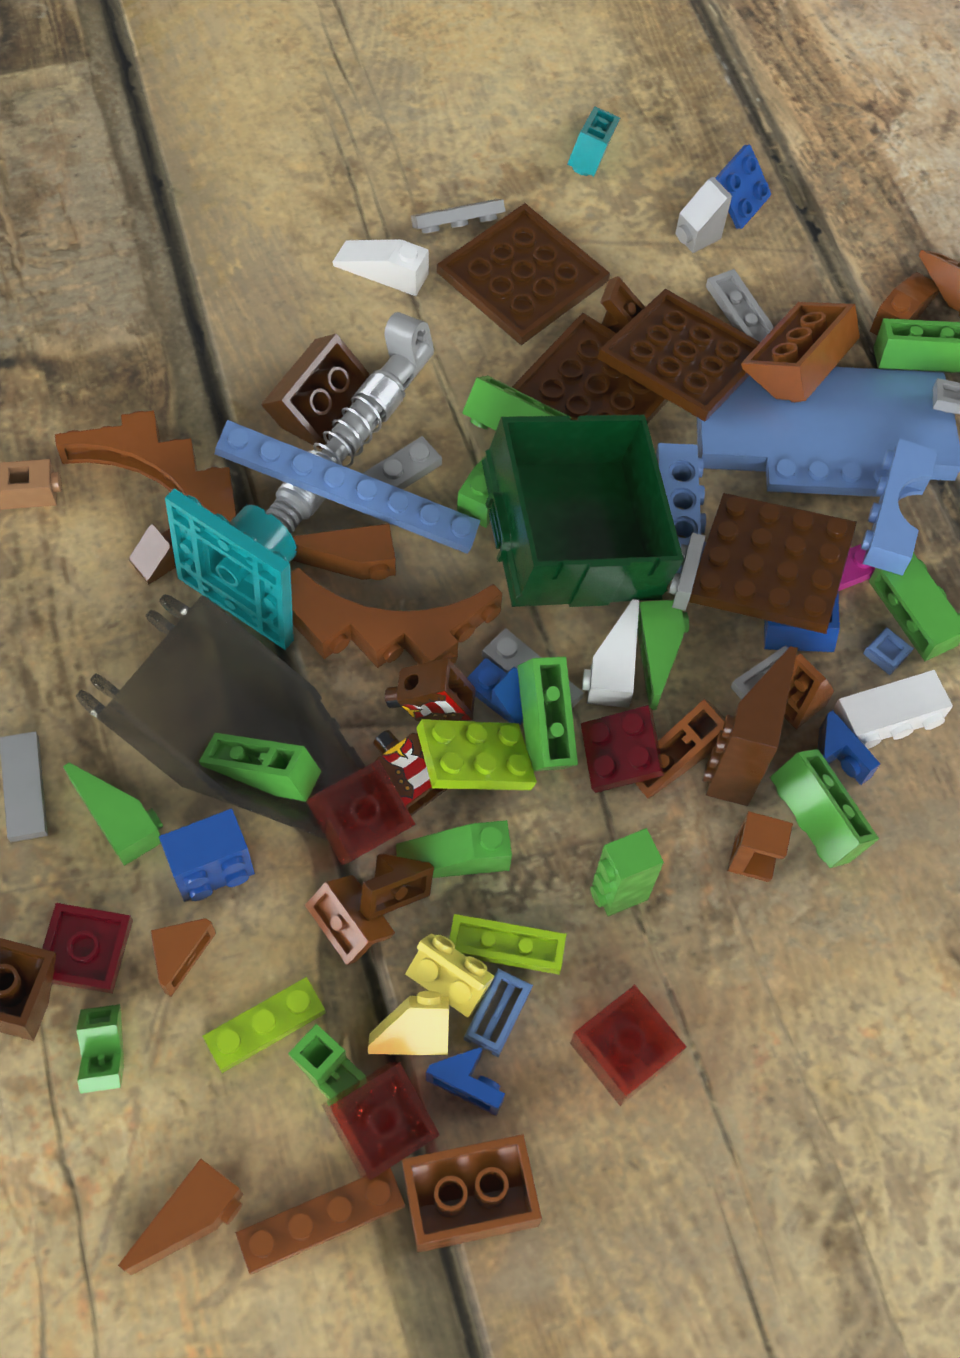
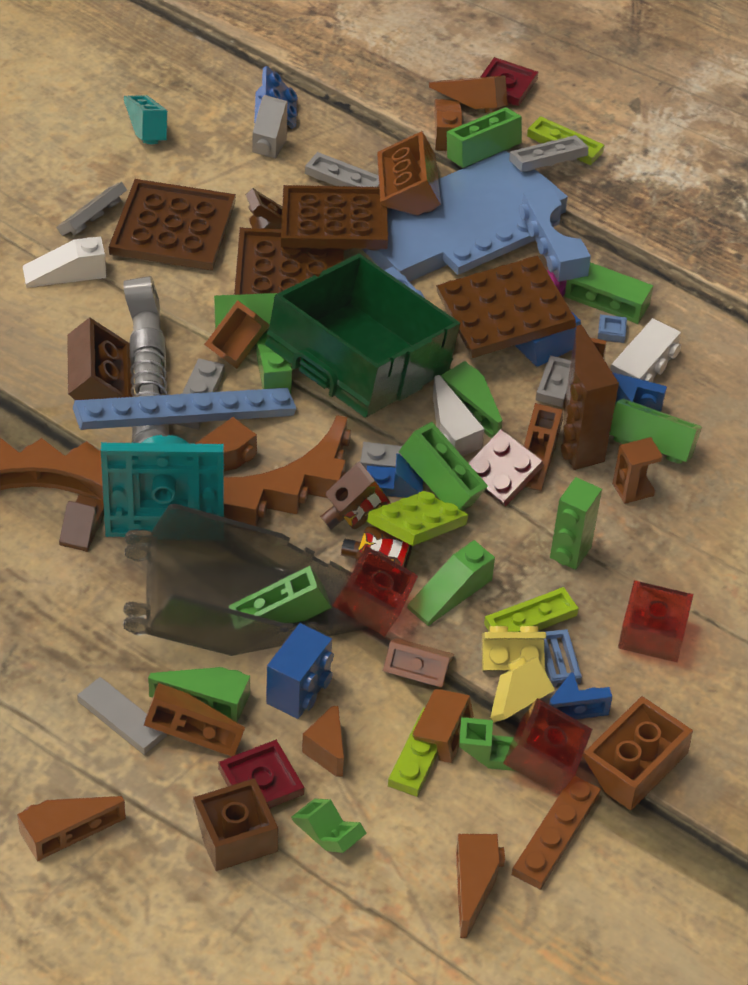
camera: 35 degrees left, 15 degrees down
(66, 833) = (192, 720): none -> dark orange slope
(303, 1005) = (442, 722): none -> dark orange panel
(395, 885) = (432, 620): reddish brown slope -> none
(466, 432) = (237, 334): none -> dark orange panel
(683, 583) = (465, 346): light grey plate -> none

